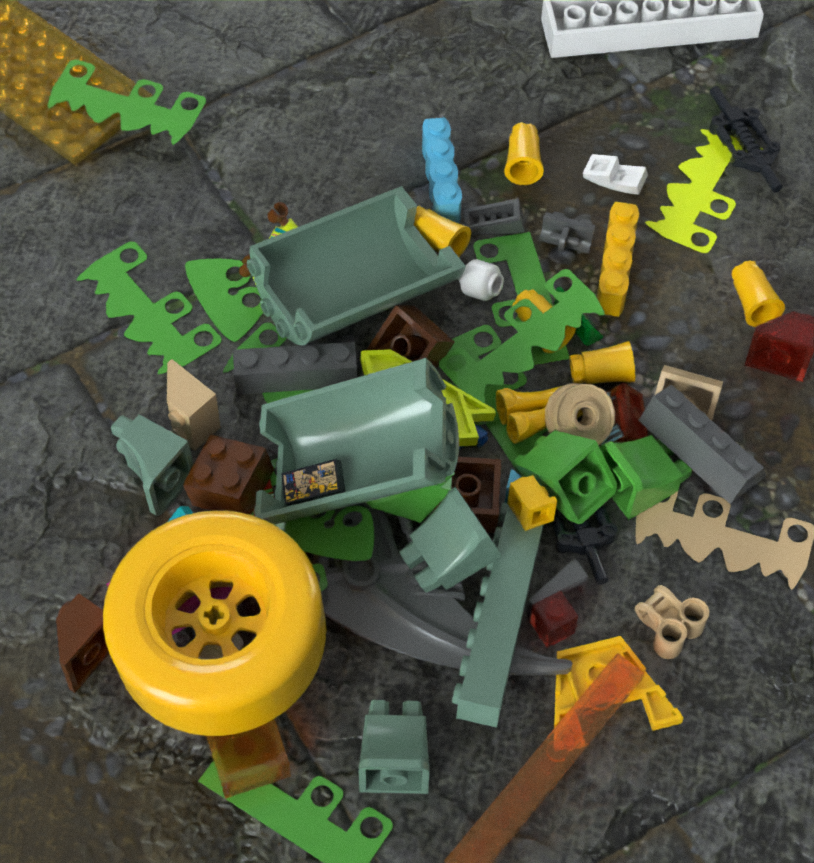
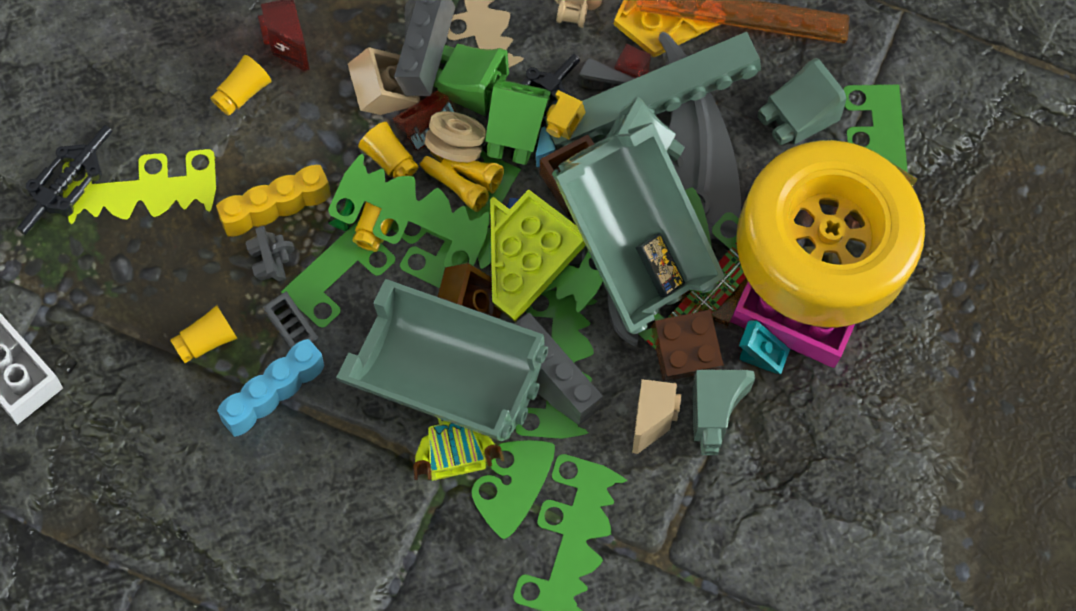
camera: 125 degrees left, 10 degrees up
(80, 640) = (890, 344): reddish brown slope -> none
(441, 231) = (340, 339): yellow plant -> none
(481, 280) = (364, 287): white head -> none
(610, 174) = (174, 258): white slope -> none

